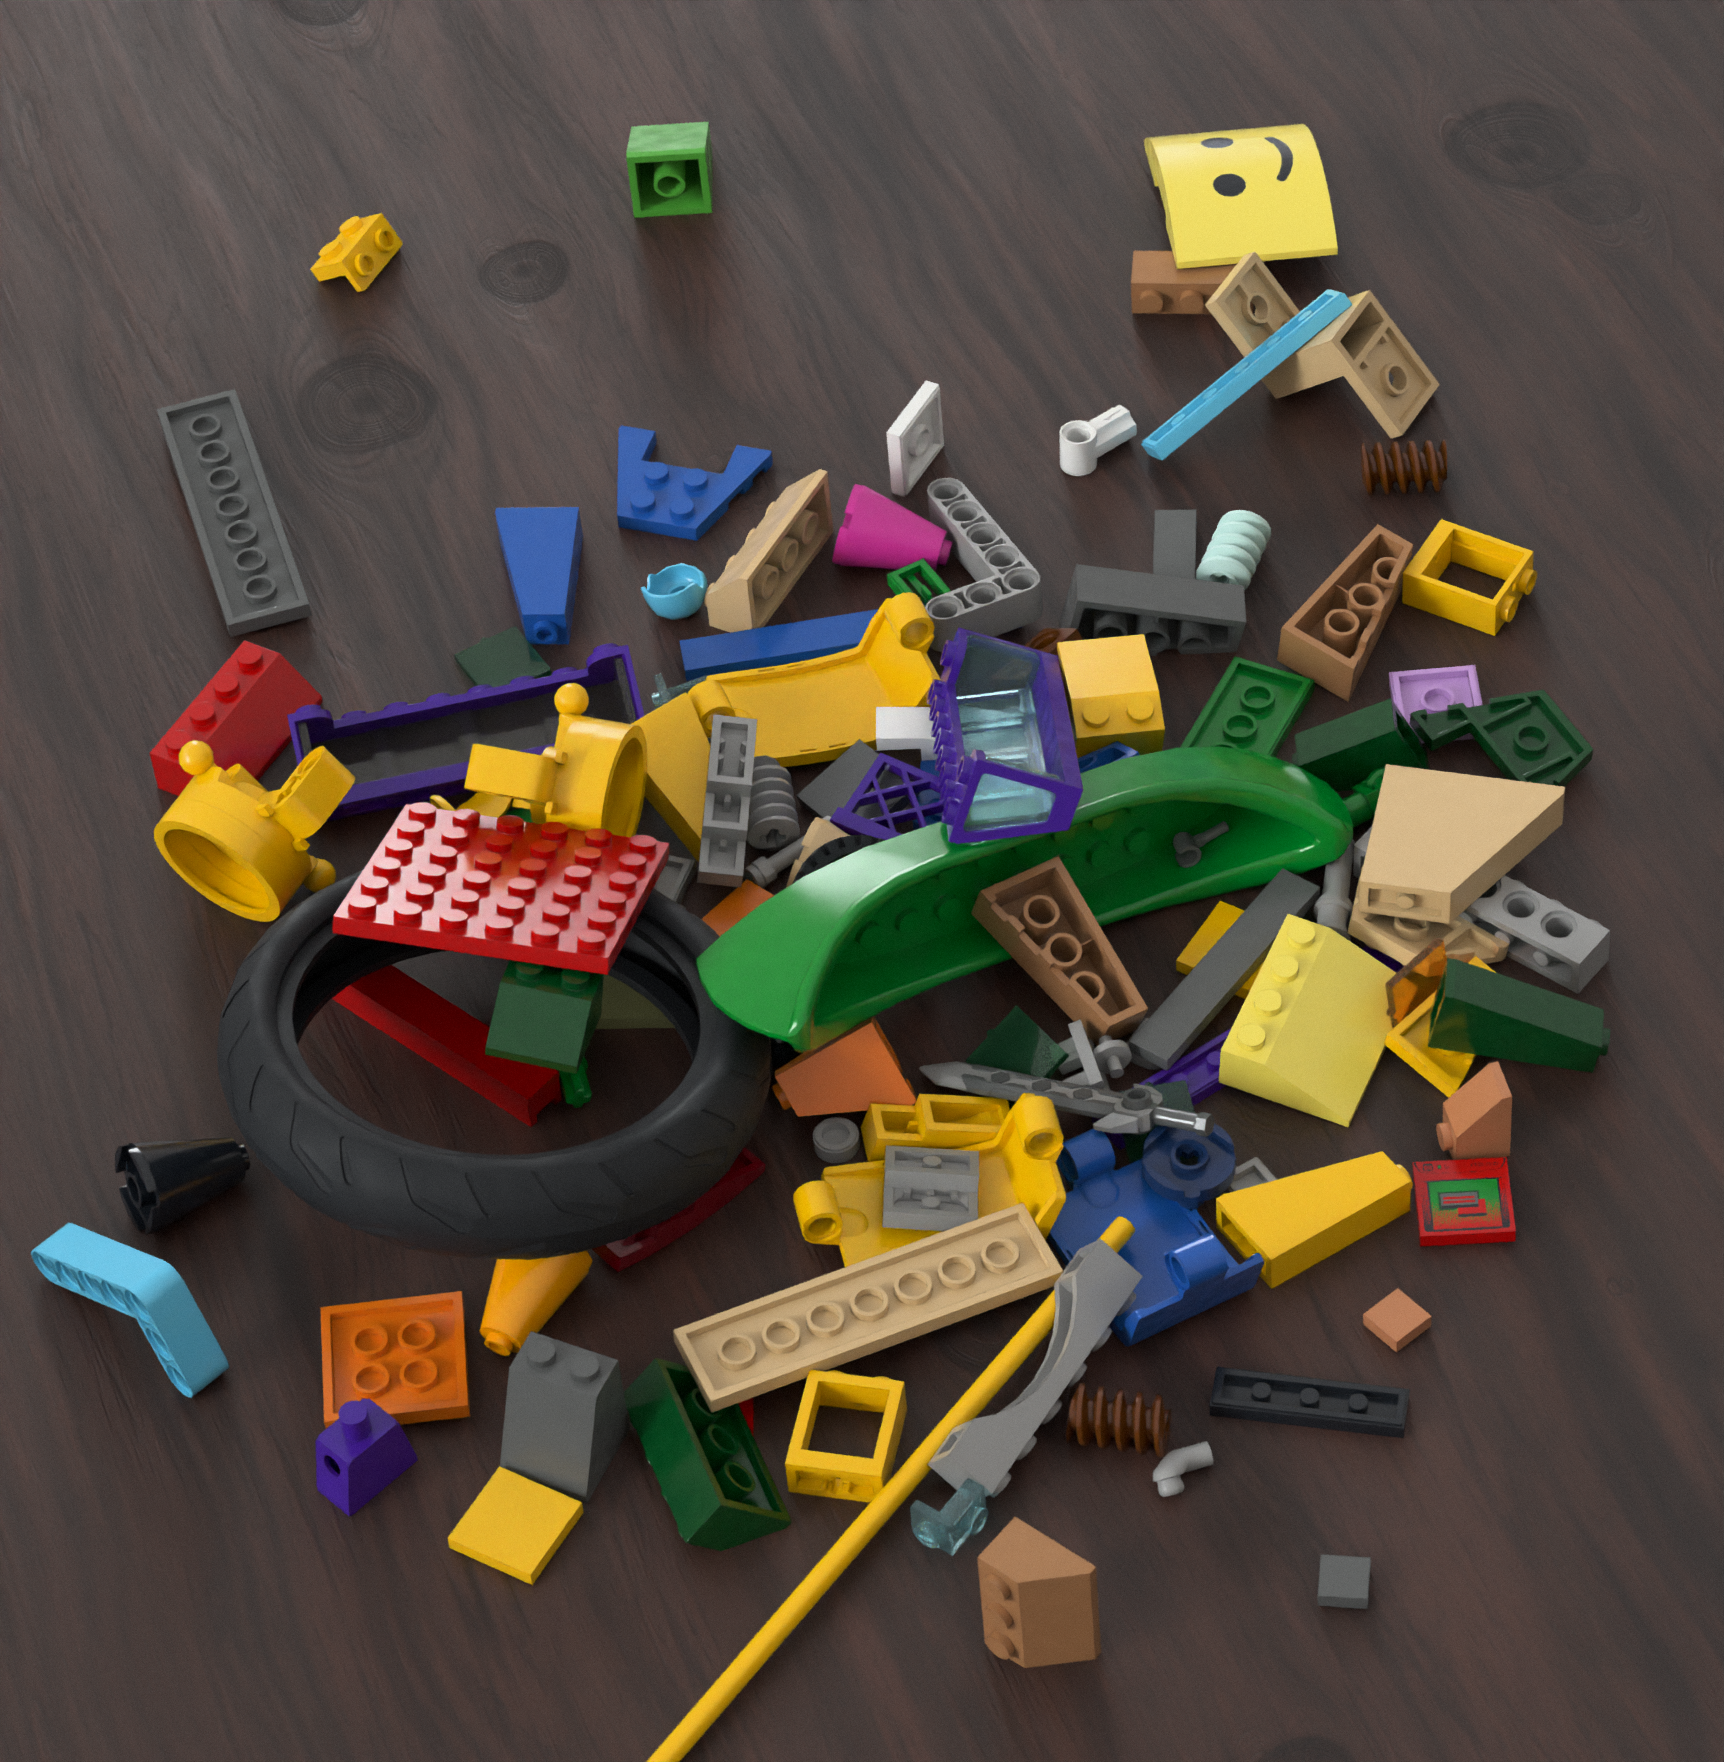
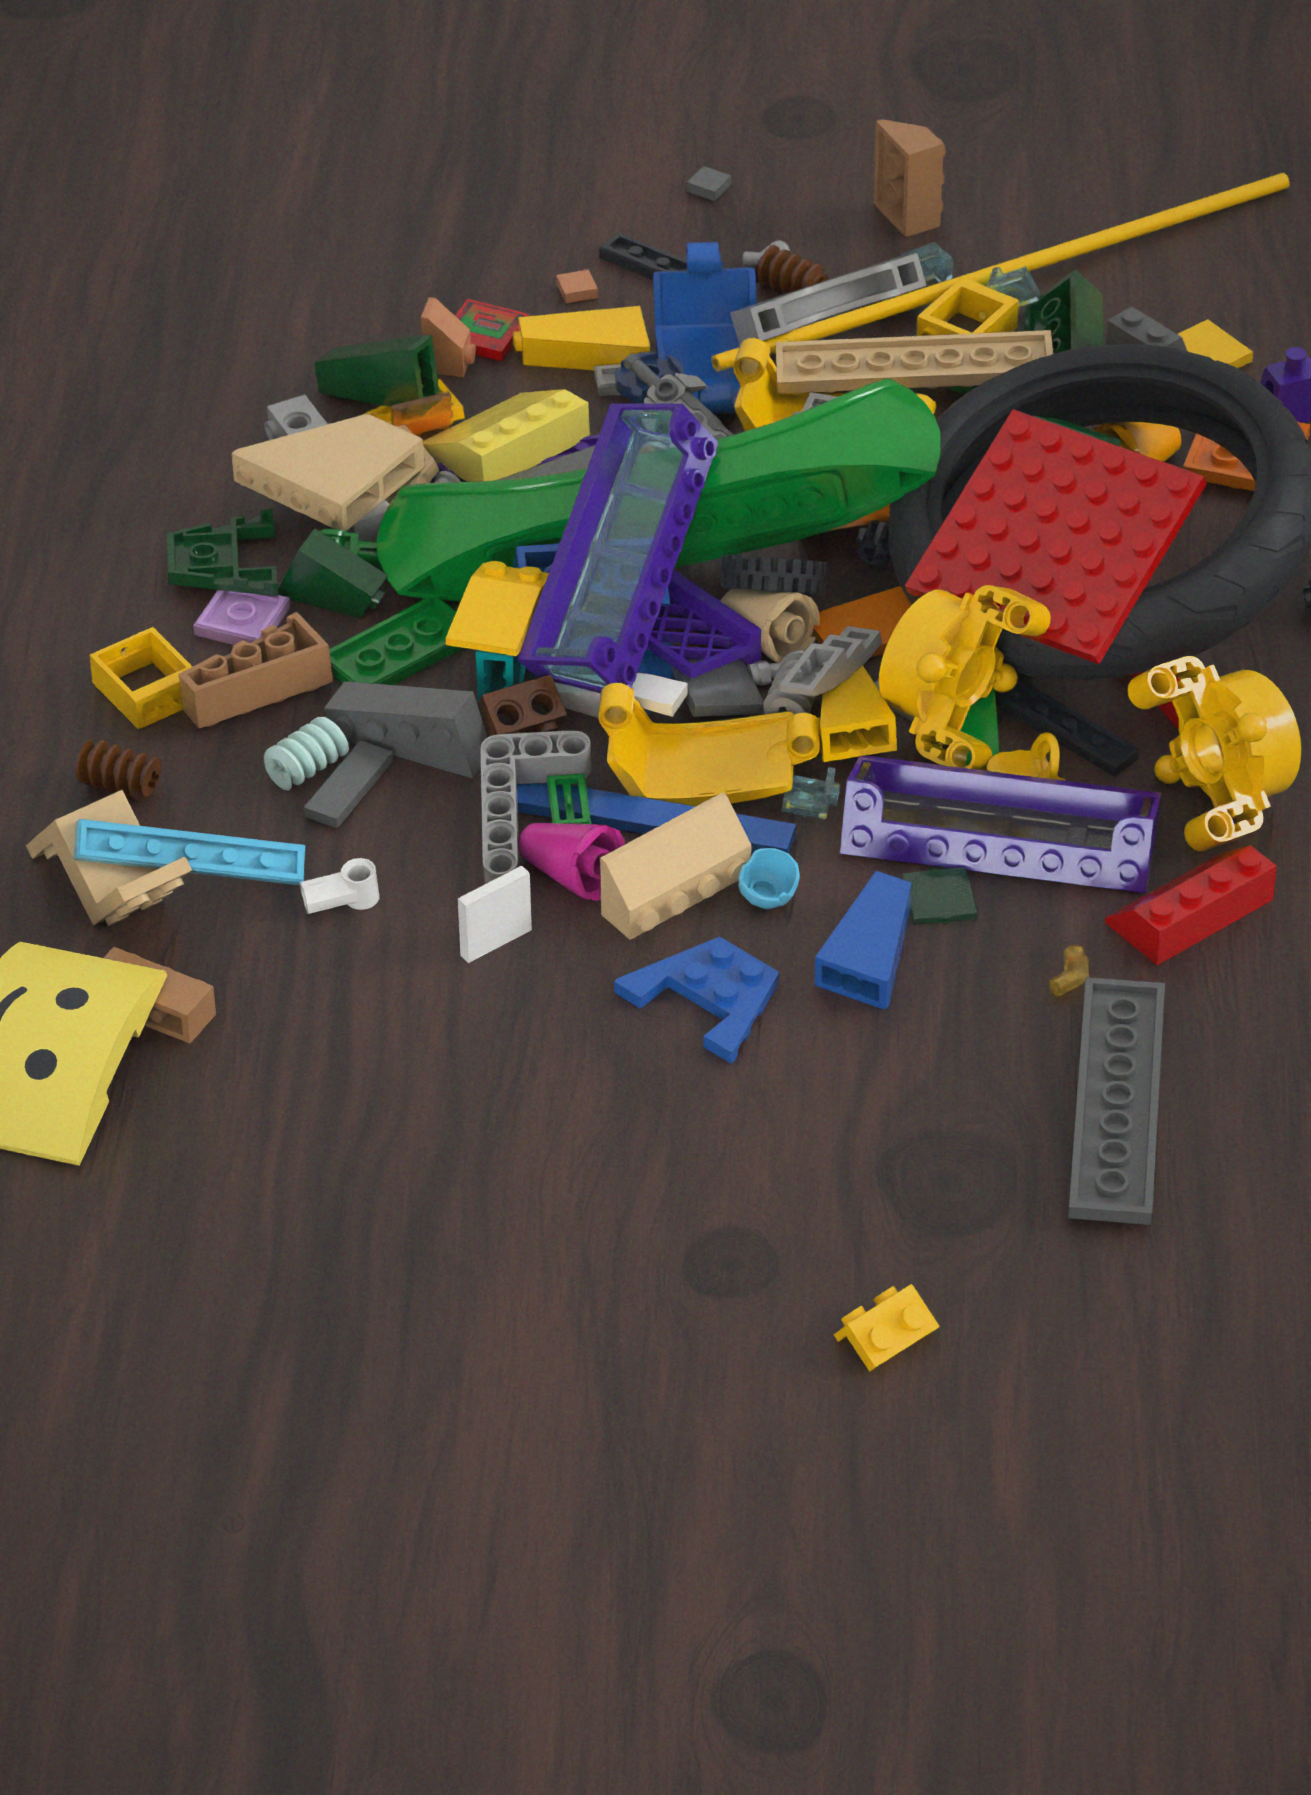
camera: 160 degrees left, 5 degrees down
(327, 620) = (1075, 971): none -> clear yellow arm
(670, 169) = (536, 1278): bright green slope -> none
(813, 1504) = (1015, 284): none -> clear light blue bracket

